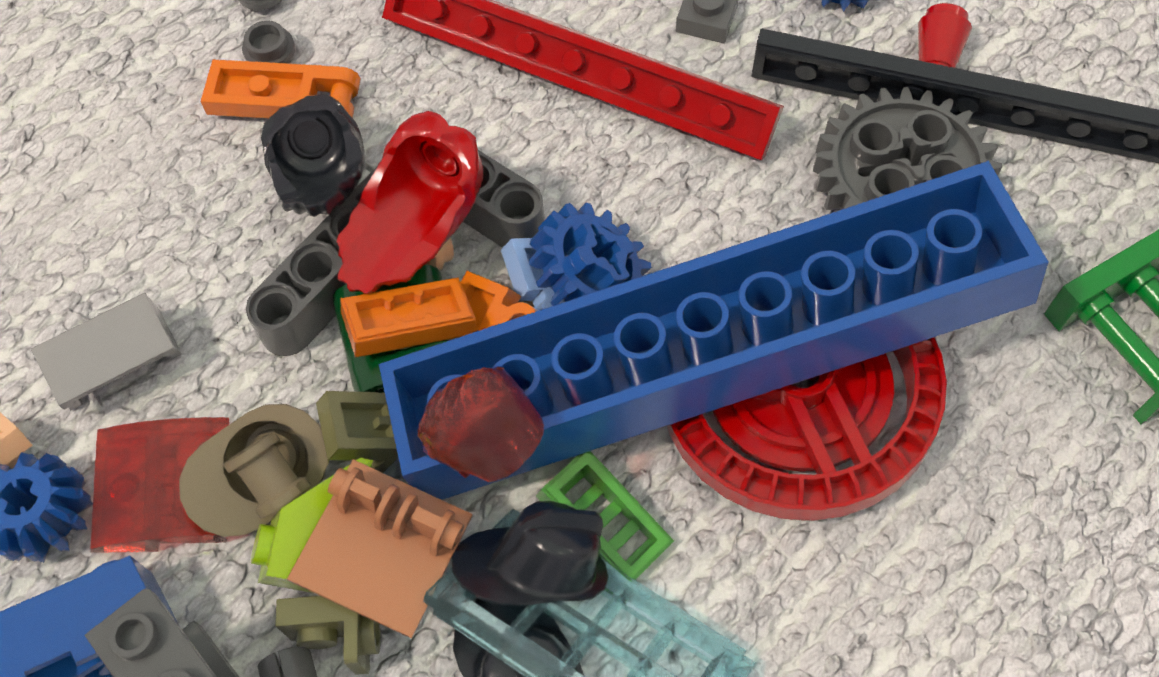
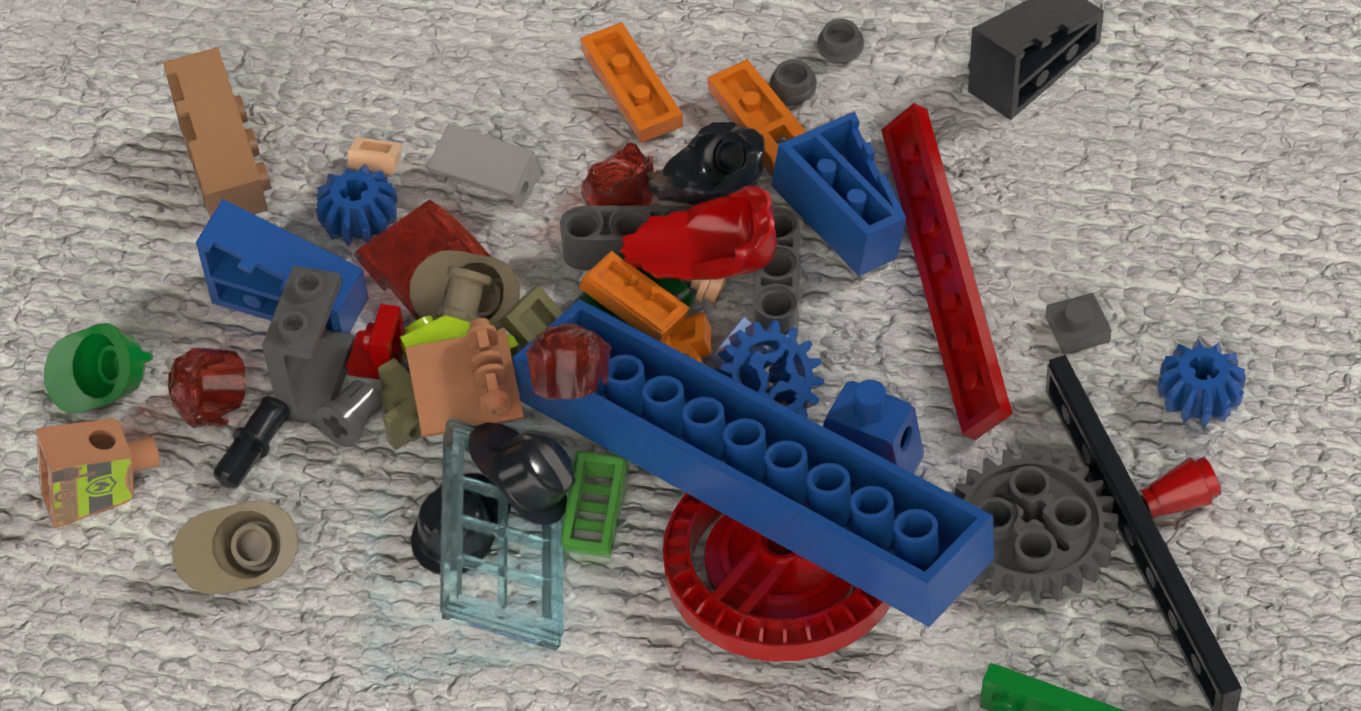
camera: 55 degrees right, 10 degrees down
(138, 165) = (631, 82): none -> orange plate
(237, 610) = (377, 343): none -> red bracket
(248, 242) = (619, 179): none -> clear red hair
(464, 78) = (841, 194): none -> blue wedge
(721, 214) = (877, 423): none -> blue torso

